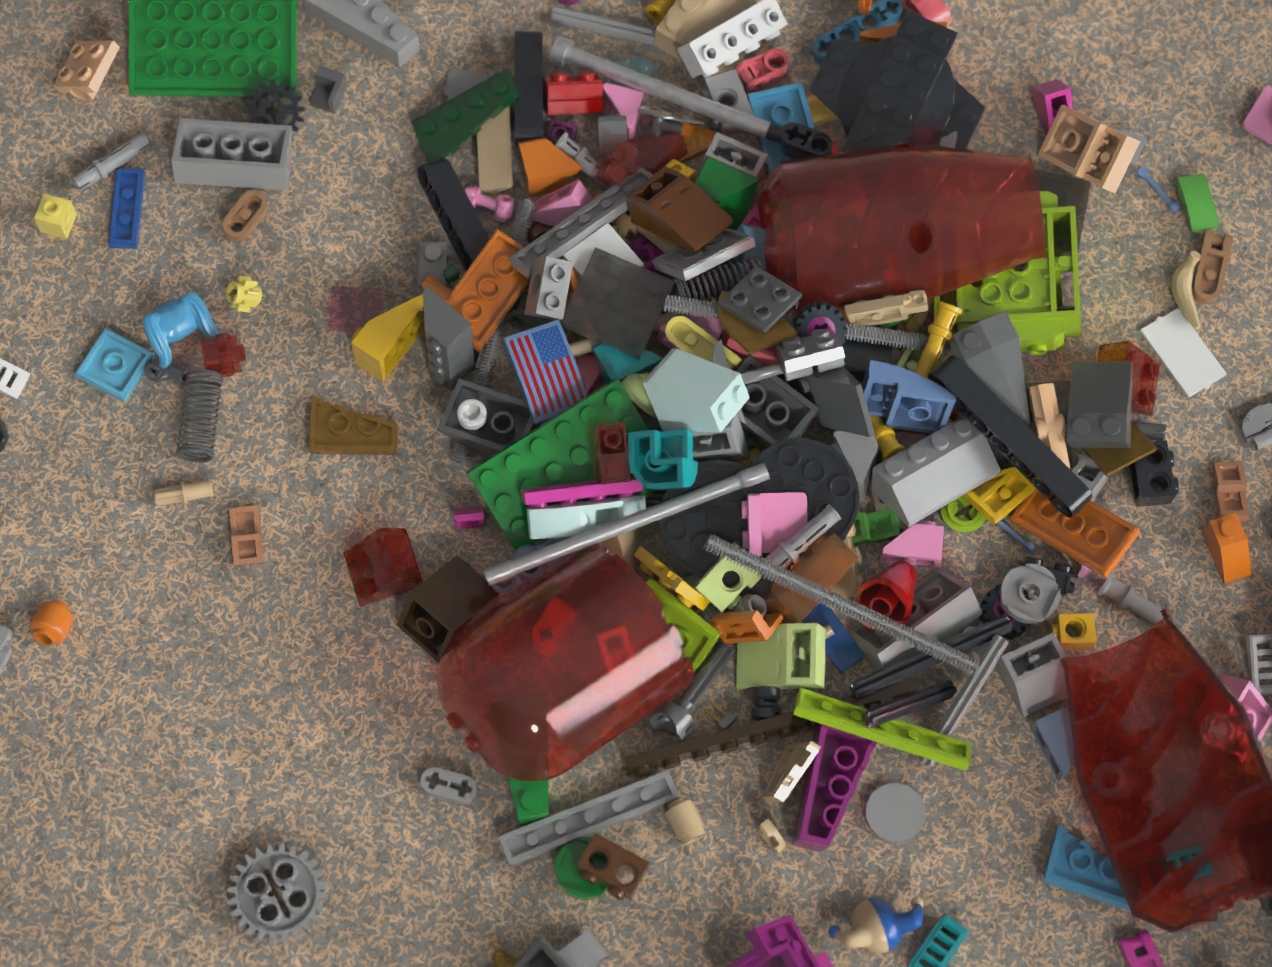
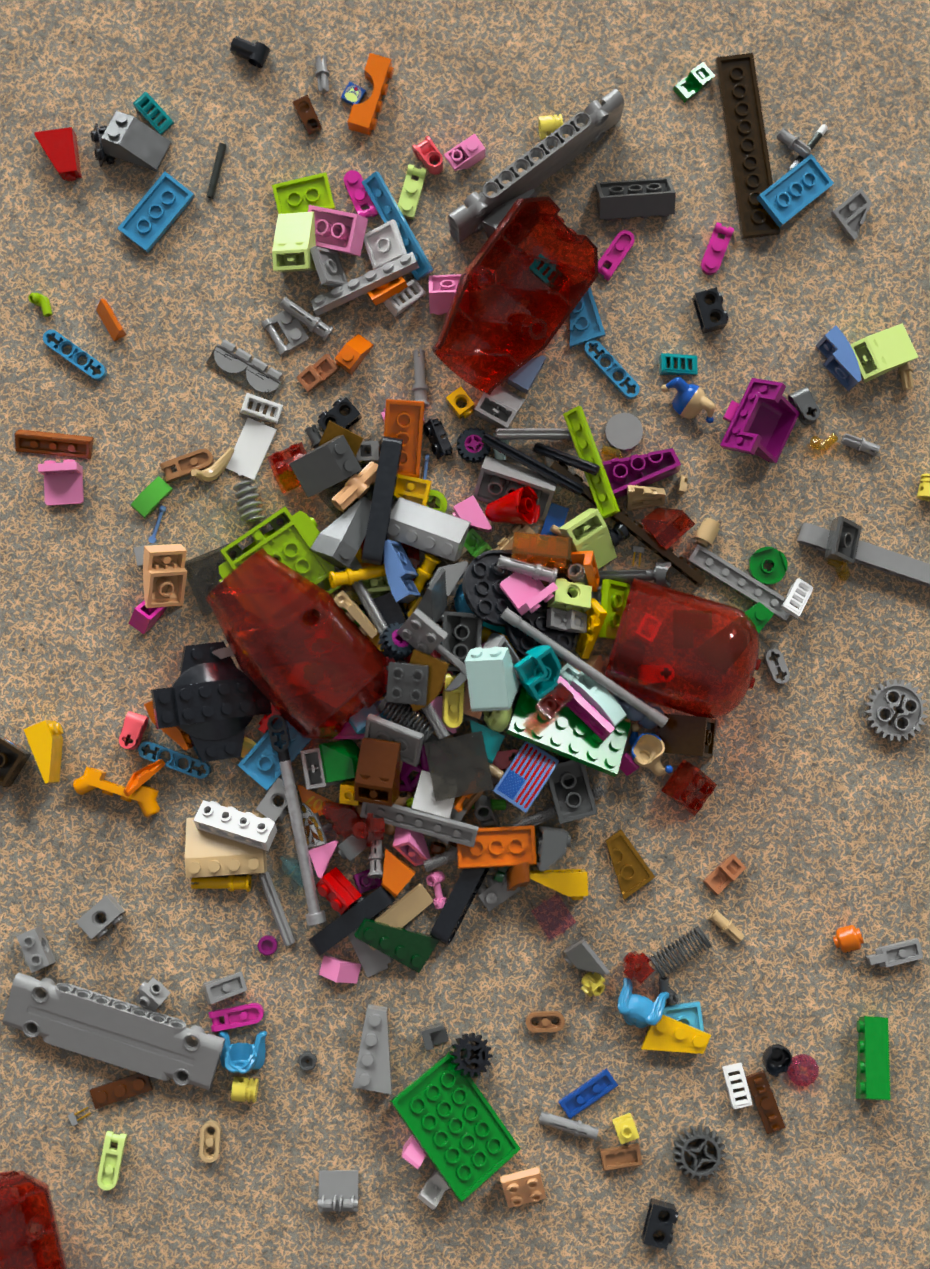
camera: 125 degrees left, 15 degrees up
(28, 192) = (621, 1157): none -> medium nougat plate
(109, 341) = (675, 1037): none -> yellow wing
(232, 154) = (515, 1058): light grey slope -> none
(279, 306) = (584, 957): none -> light grey slope
(465, 539) = (647, 751): none -> tan piece
(471, 414) = (577, 800): white tile -> none
(480, 44) = (340, 970): none -> bright pink slope
(522, 886) = (797, 596): none -> white slope
(548, 288) = (479, 809): light grey brick -> none
(617, 860) = (756, 549): reddish brown brick -> none
(692, 558) = (566, 620): none -> light grey slope
(732, 769) = (667, 525): none -> clear red slope
(758, 73) = (243, 795): coral piece -> none
(843, 604) = (548, 523): light grey axle -> none
(872, 780) = (611, 452): none -> clear yellow arm
(991, 860) = (614, 367): none -> dark azure beam
(1014, 601) = (467, 428): light grey plate -> none
(1116, 300) = (247, 501): none -> light grey piece
(1245, 380) = (251, 412): none -> white slope

